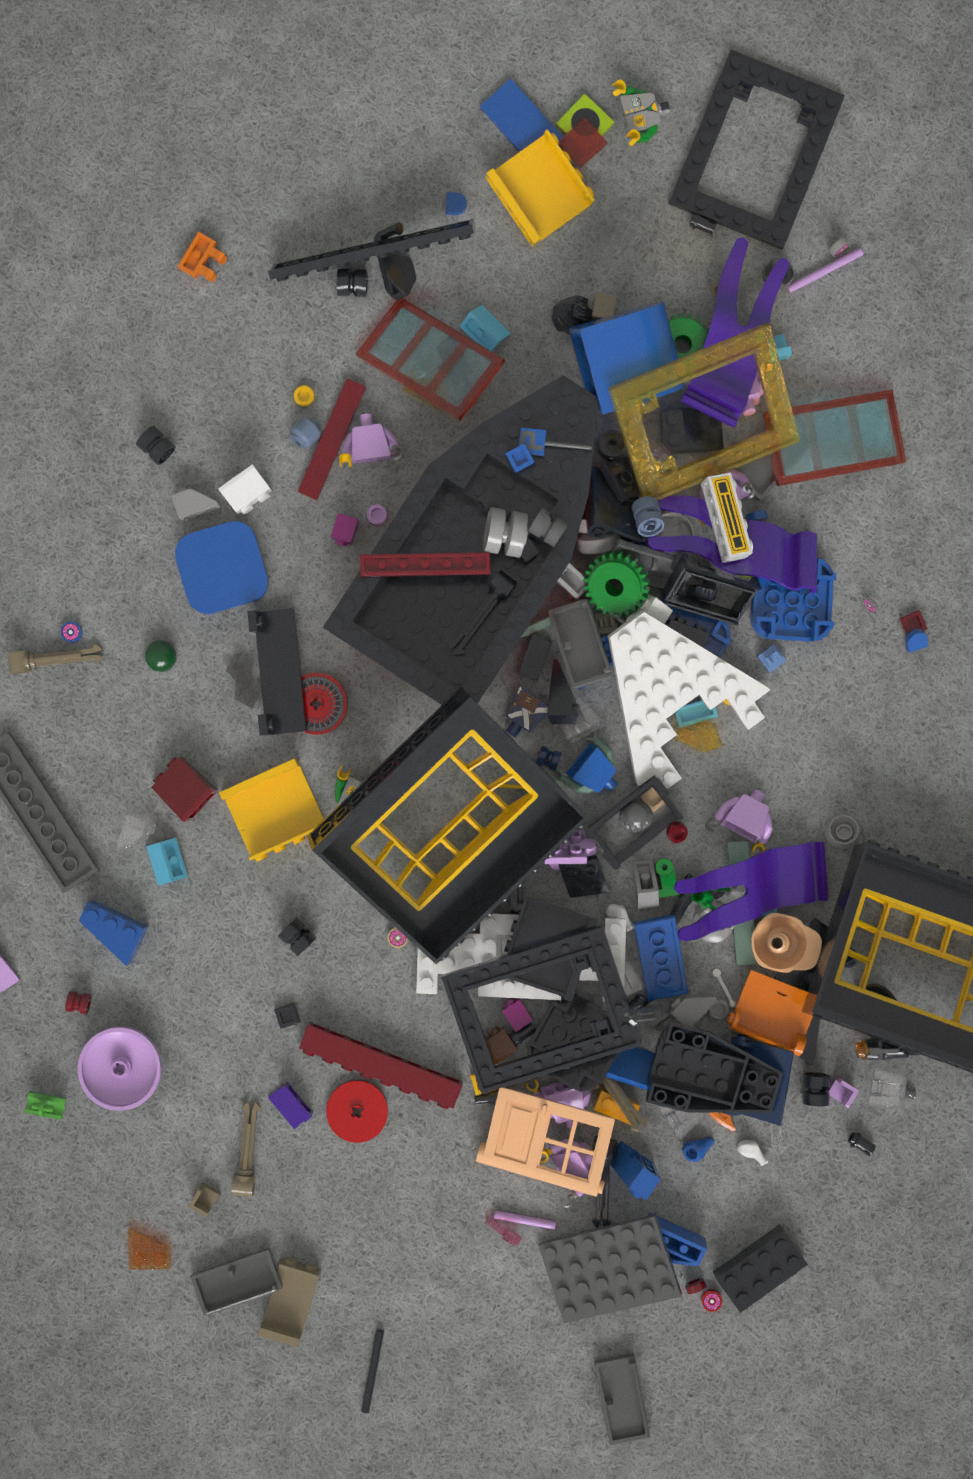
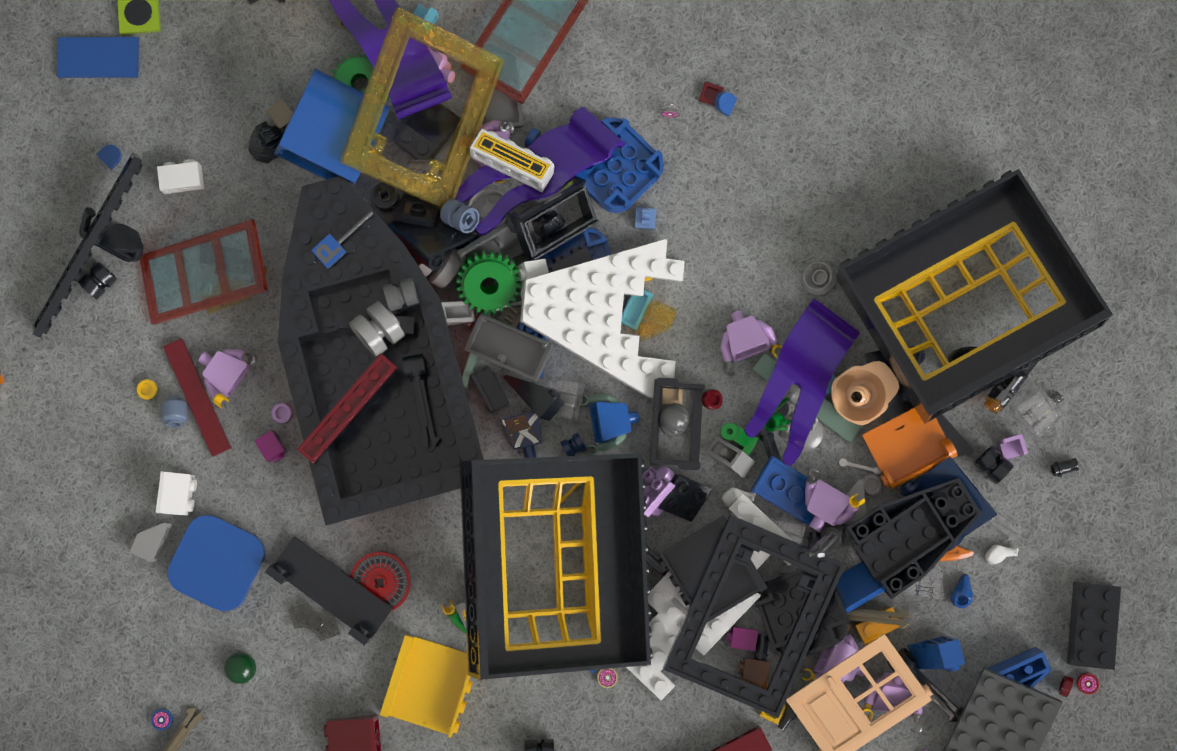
camera: 45 degrees left, 5 degrees down
(153, 443) = (86, 531): black wheel -> none
(484, 328) = (218, 214): medium azure panel -> none
(487, 273) = (180, 177): none -> white brick
(520, 457) = (332, 269): blue tile -> none
(540, 188) = (155, 85): yellow panel -> none
(582, 142) = (151, 26): clear red piece -> none
(676, 990) = (828, 503): none -> lavender torso

